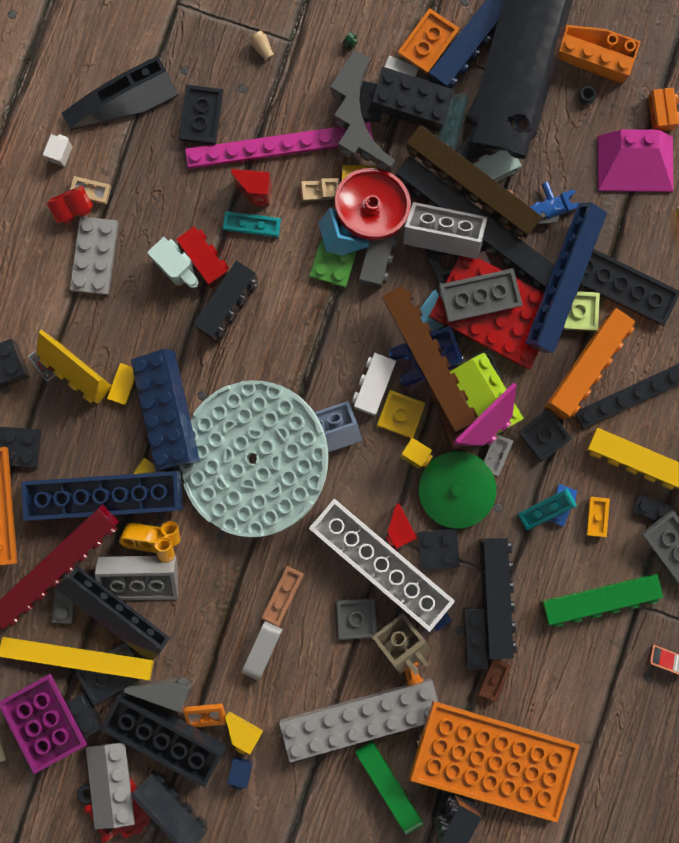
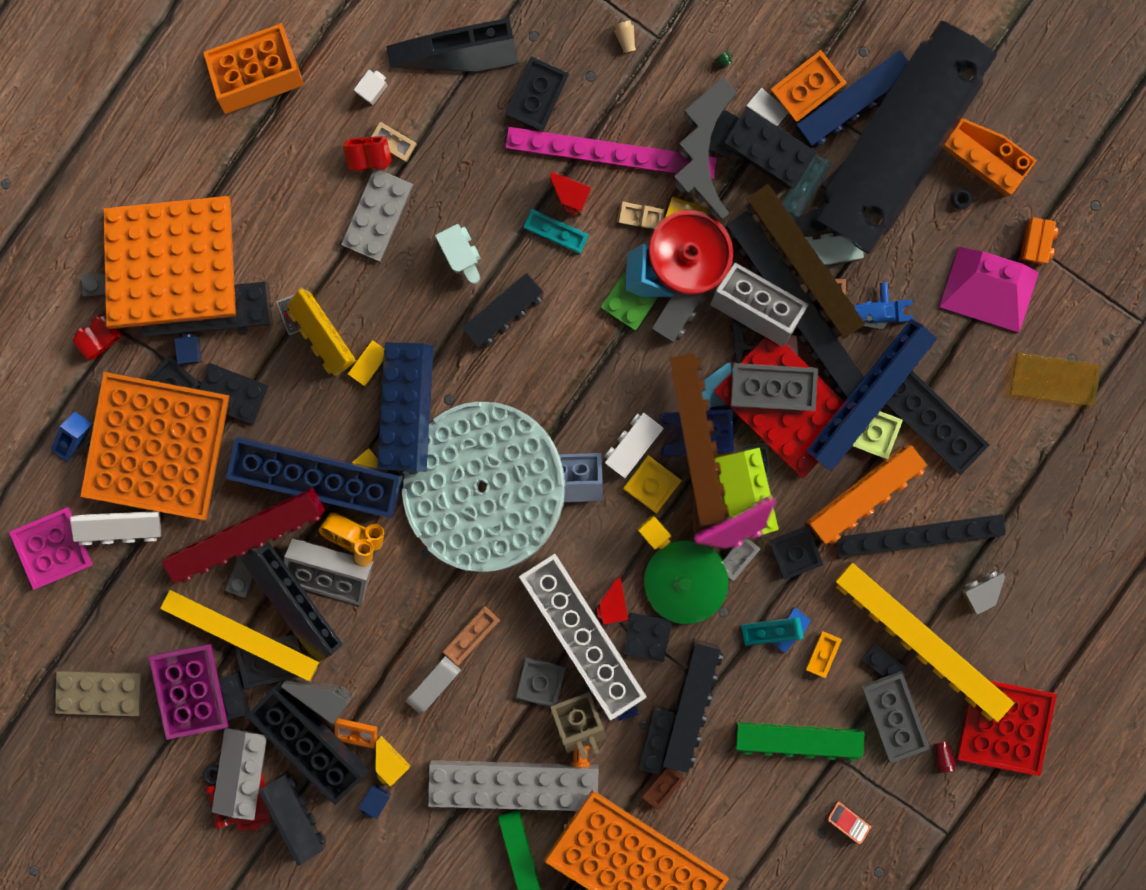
camera: 15 degrees right, 5 degrees up
(203, 256) = (493, 252): red brick -> none

